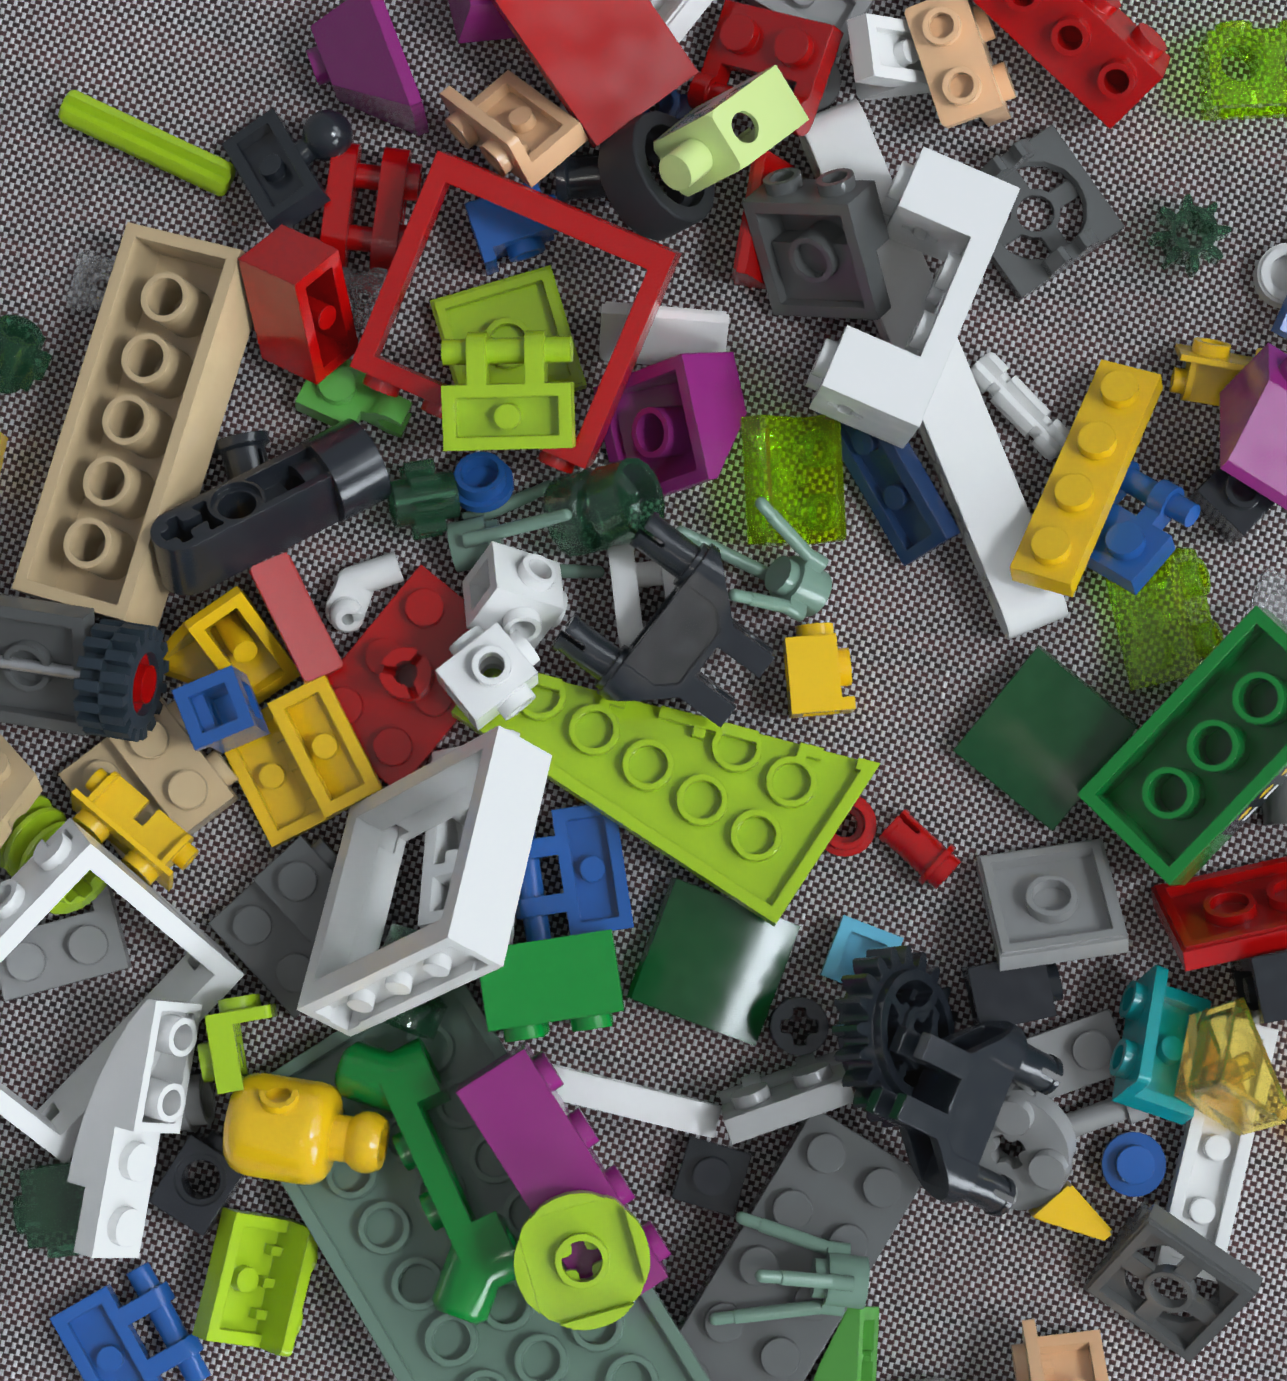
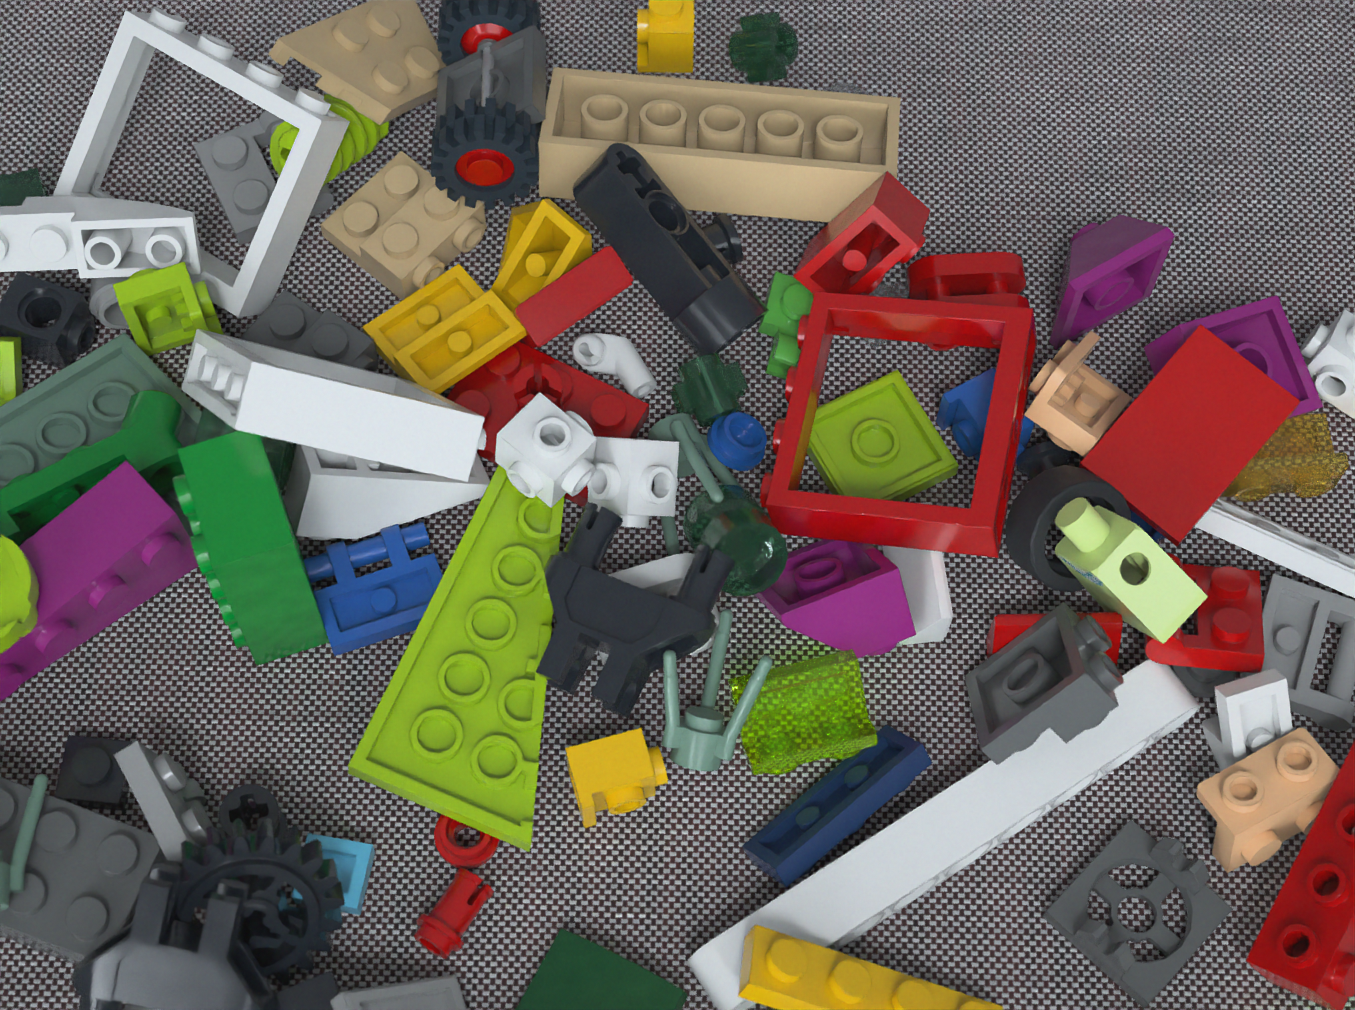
camera: 80 degrees right, 20 degrees down
(147, 143) = (978, 126): lime axle -> none
(147, 848) = (341, 217): yellow hinge -> none
(220, 710) = (474, 245): blue brick -> none
(279, 167) = (989, 216): black plate -> none
(297, 1130) = (89, 366): yellow piece -> none
(508, 414) = (799, 420): lime plate -> none
(638, 1102) = (162, 670): white beam -> none
(712, 962) = (304, 732): dark green slope -> none
(949, 216) = (1093, 813): white plate -> none
(1019, 405) = (937, 926): white axle -> none

